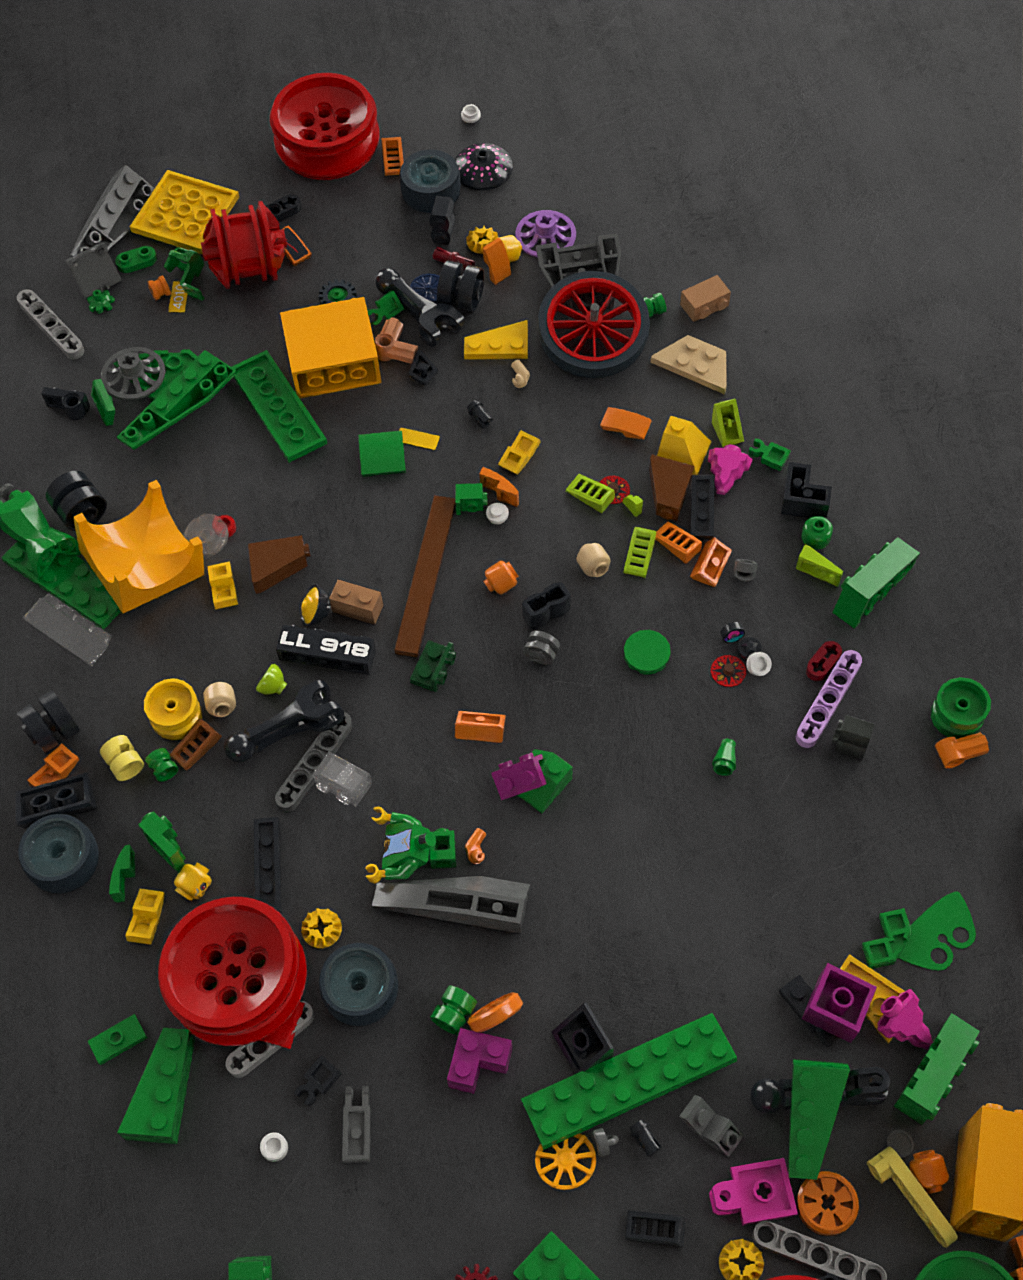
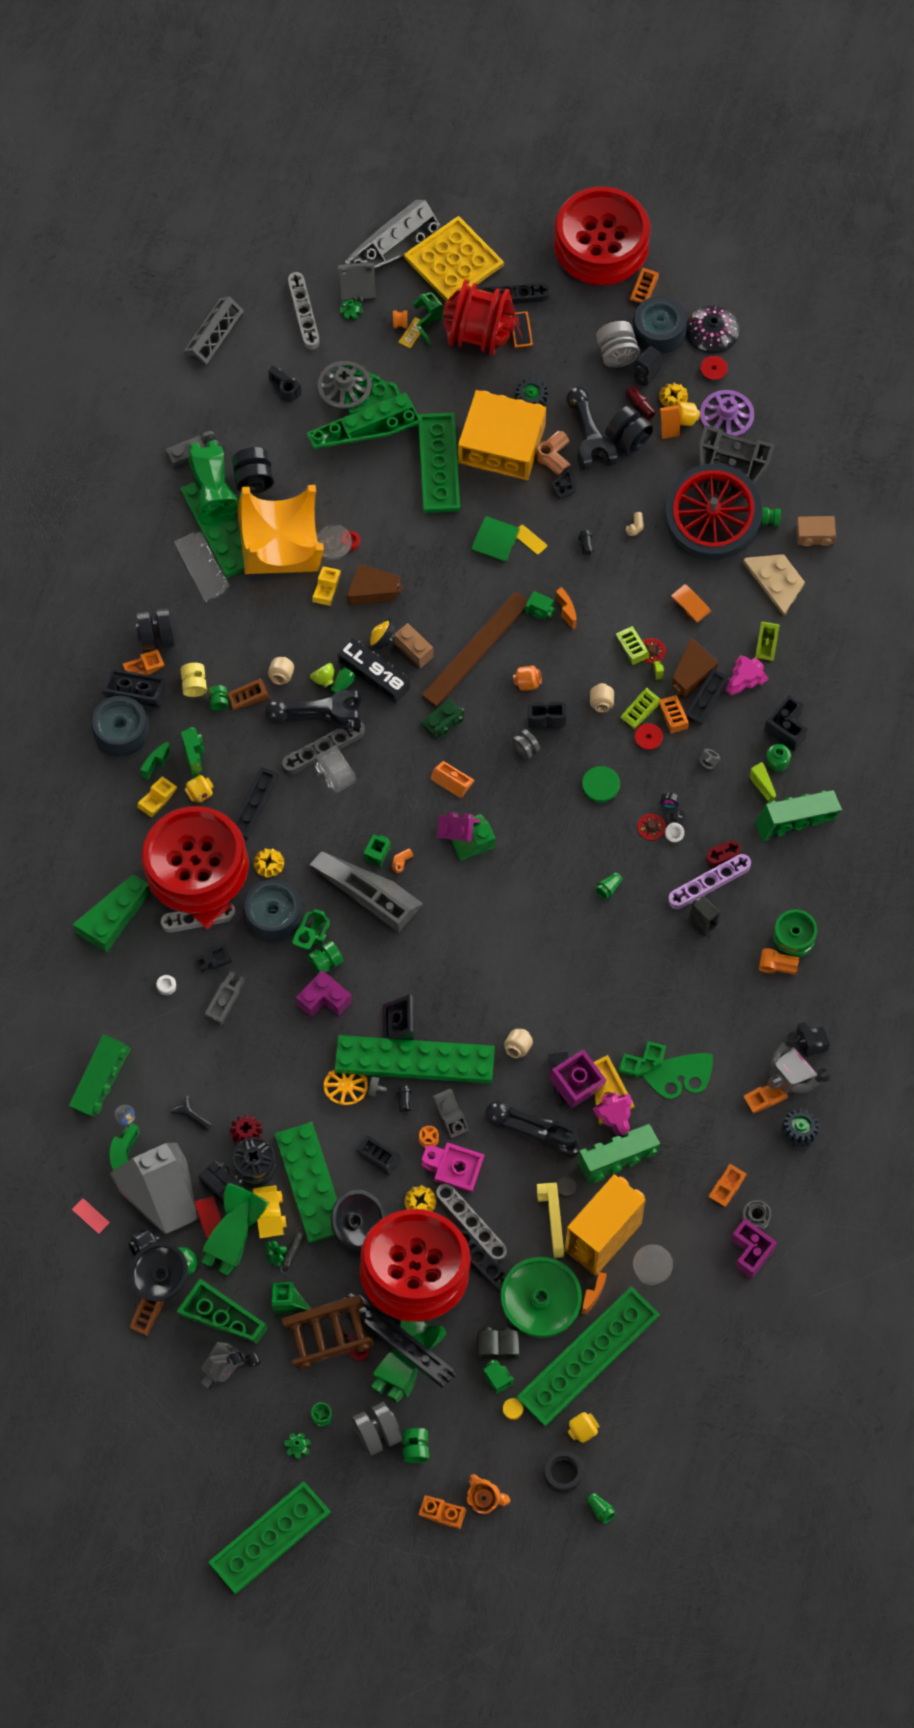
camera: 25 degrees right, 5 degrees up
(103, 402) = (311, 397): green plate -> none
(117, 1039) = (100, 868): green plate -> none
(136, 259) = (395, 285): green plate -> none
(172, 708) = (244, 661): yellow wheel -> none
(297, 676) = (343, 680): none -> green cone
(388, 307) = (566, 420): green plate -> none
(399, 213) = (617, 344): none -> light grey wheel
(404, 846) = (351, 836): green torso -> none
(420, 988) = (312, 934): none -> green piece
(426, 286) = (602, 416): dark blue wheel -> none
(470, 113) = (729, 276): white plate -> none
(495, 1012) = (351, 972): orange wheel -> none
(497, 513) = (554, 627): white plate -> none
(499, 343) = (635, 491): yellow wing -> none
(507, 198) = (714, 367): none -> red piece
(519, 453) = (598, 588): yellow slope -> none
(666, 576) = (648, 736): none -> red piece
(684, 443) = (723, 642): yellow slope -> none
(705, 1166) = (429, 1133): none -> orange wheel
(711, 562) = (689, 742): orange slope -> none
(738, 995) = (518, 1043): none -> tan head
(772, 455) = (785, 682): green plate -> none
(814, 1106) = (517, 1131): green wedge -> none
(844, 1206) = (507, 1200): orange wheel -> none
(929, 1170) = (571, 1207): orange head -> none

